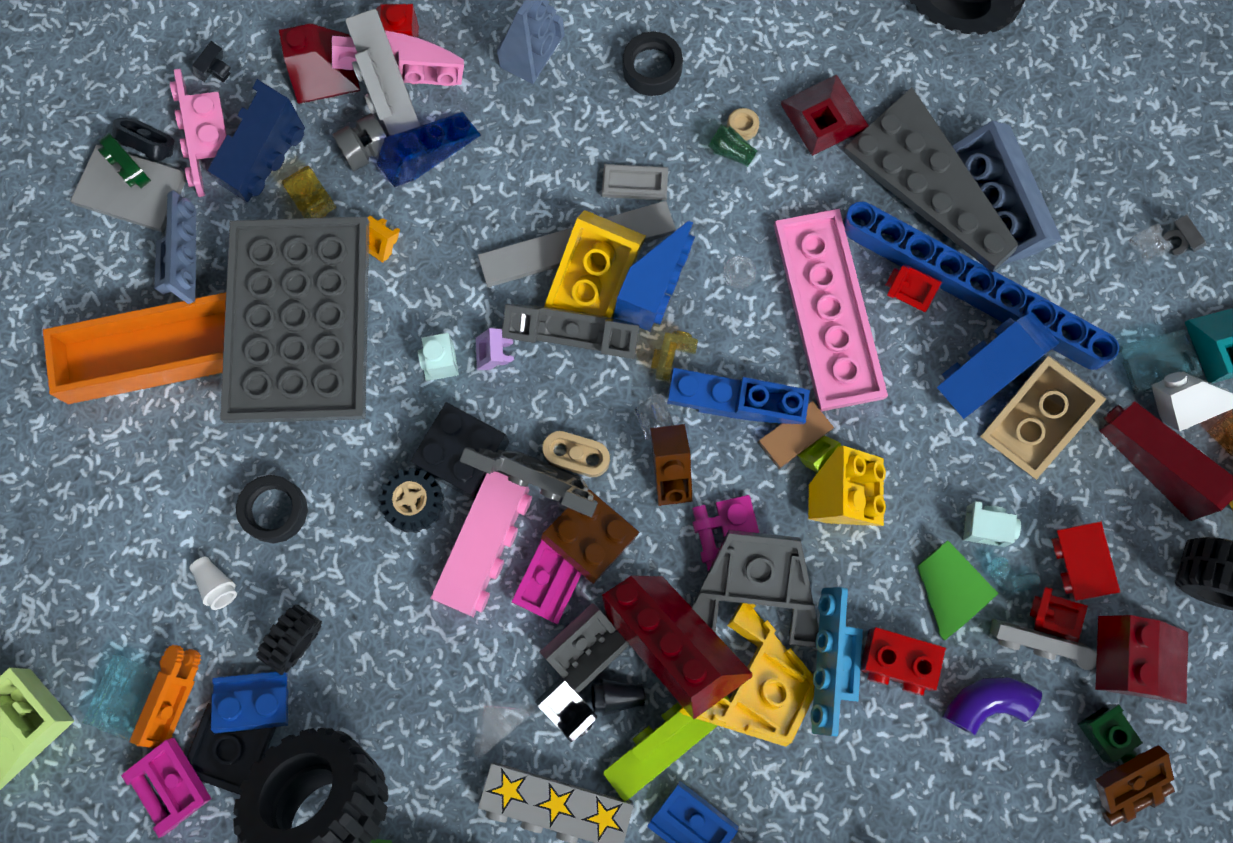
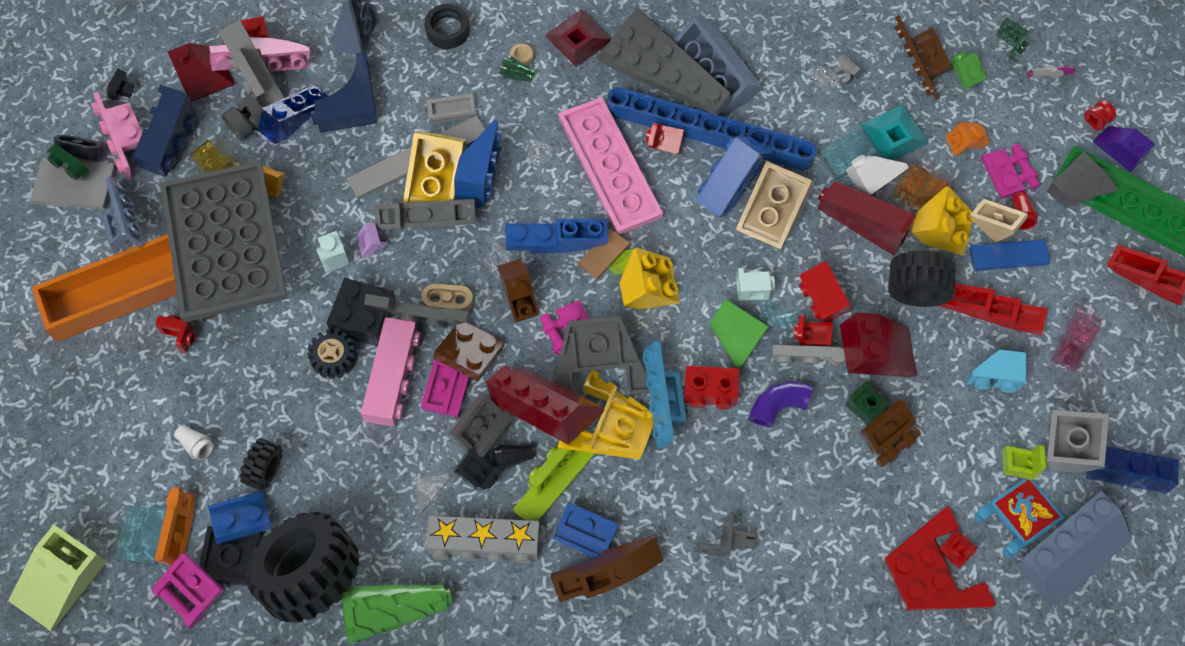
camera: 15 degrees left, 10 degrees down
(229, 433) = (176, 327): none -> red bracket
(250, 494) = (236, 398): black tyre -> none
(504, 152) = (350, 105): none -> dark blue arch
(664, 357) = (502, 208): clear yellow bracket -> none

